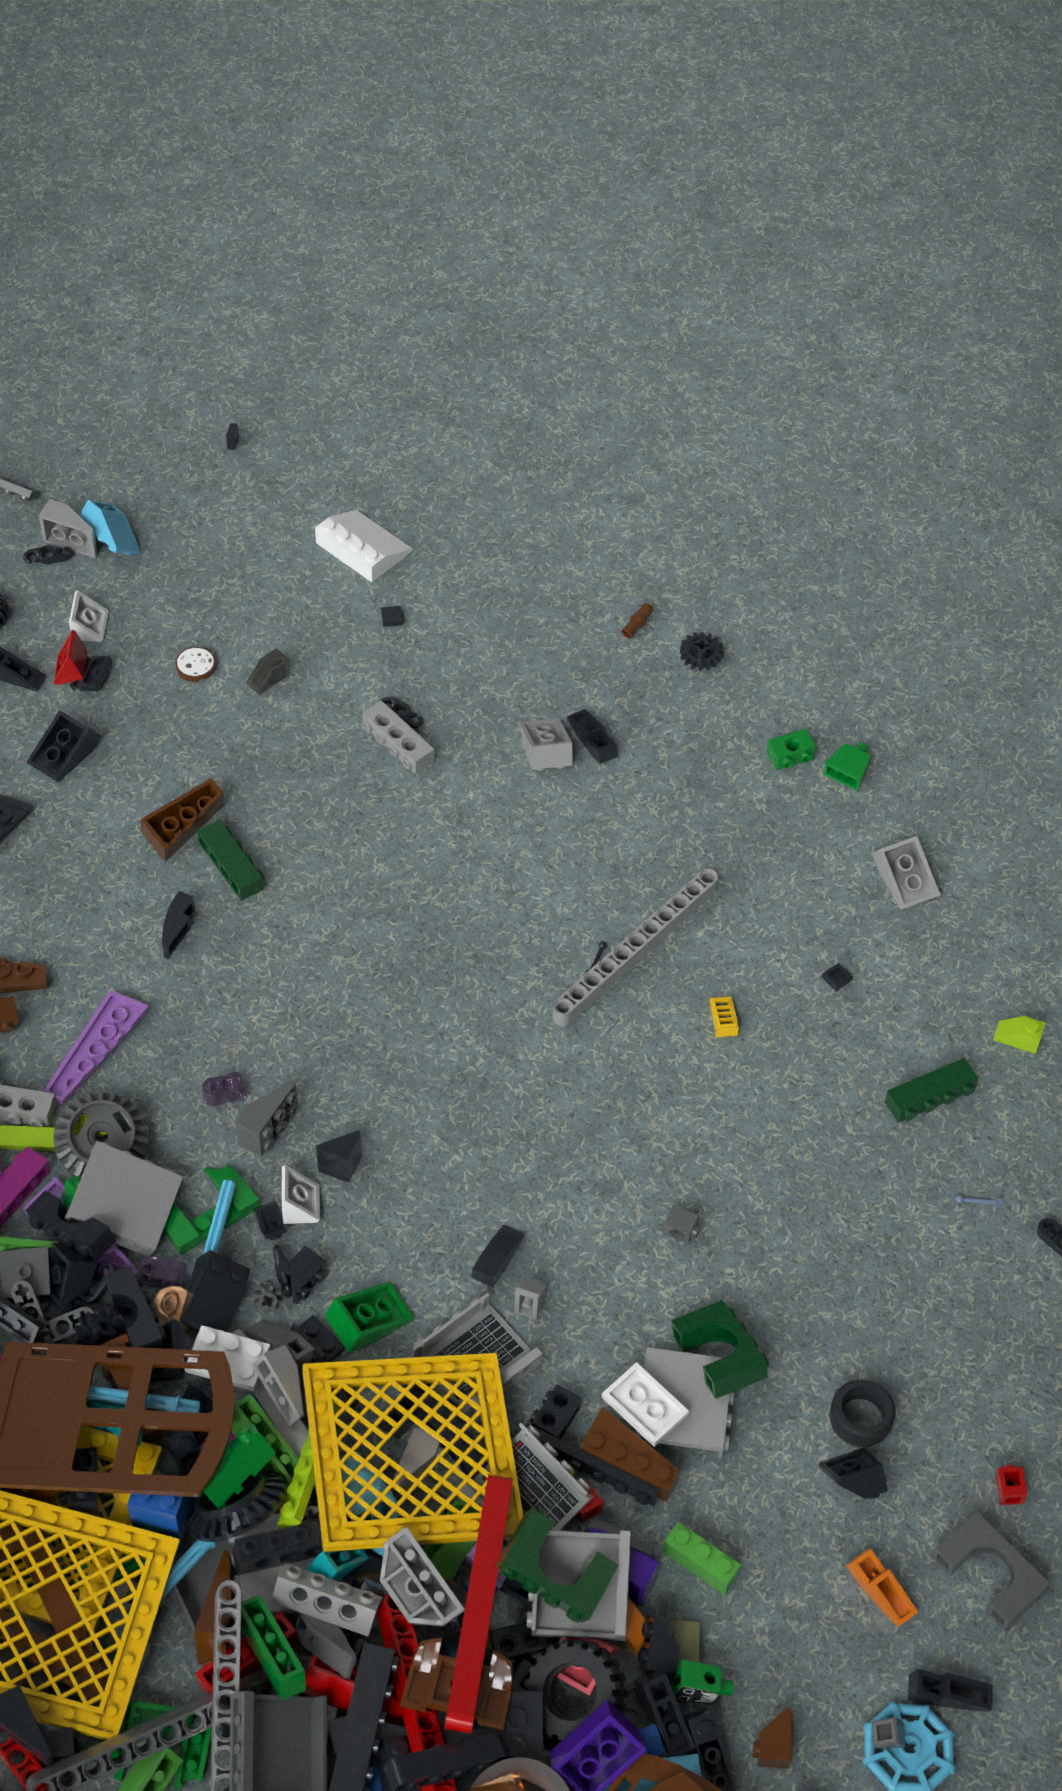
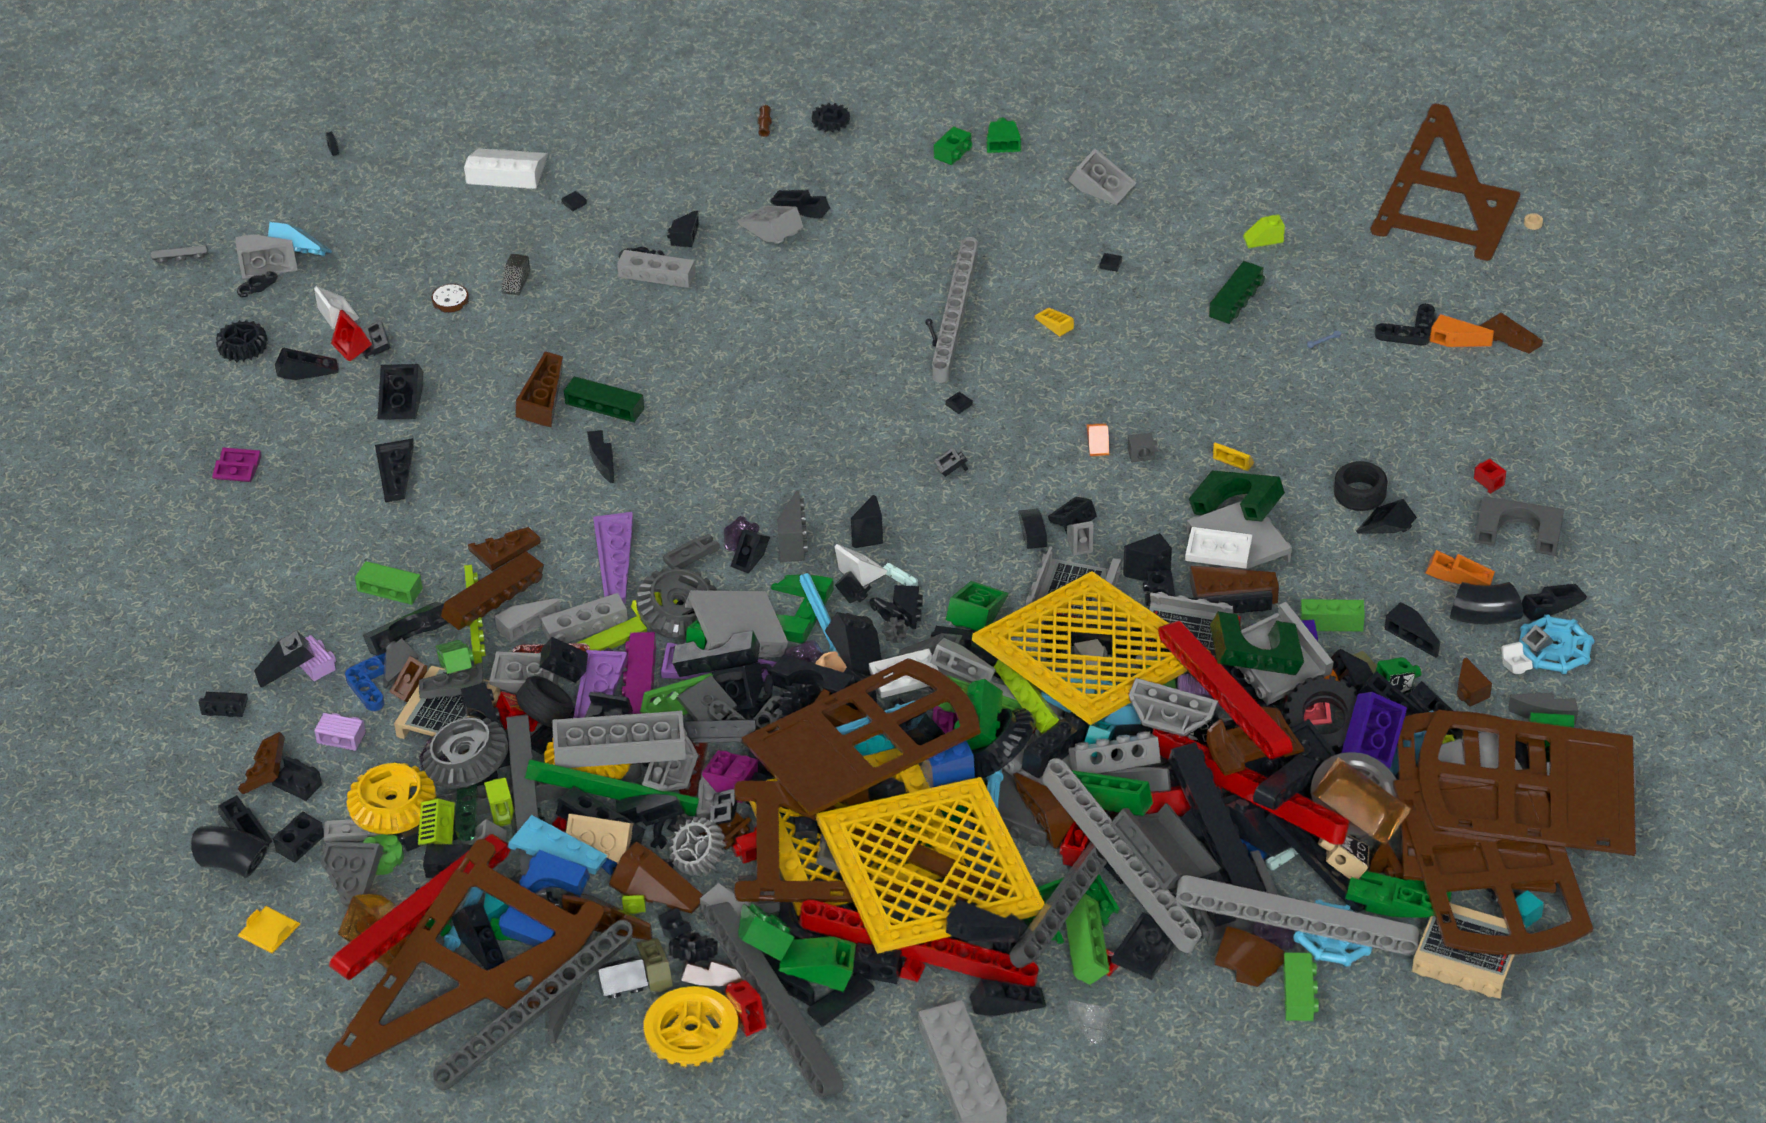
camera: 30 degrees left, 10 degrees down
(164, 1084) = (691, 551): none -> dark grey hinge
(216, 1115) = (749, 550): none -> black slope
(330, 1233) = (900, 575): none -> light aqua axle
(460, 706) = (684, 230): none -> black slope
(485, 1127) = (951, 461): none -> black bracket
(550, 1264) = (1074, 512): none -> black bracket
(552, 1059) = (959, 402): none -> black tile
(569, 1369) = (1146, 555): none -> black slope
(649, 1186) = (1098, 439): none -> slope
(764, 1292) = (1232, 457): none -> yellow slope
(770, 1620) = (1411, 627): none -> black slope
(848, 1742) = (1515, 659): none -> white bracket
(866, 1652) = (1487, 604): none -> black brick

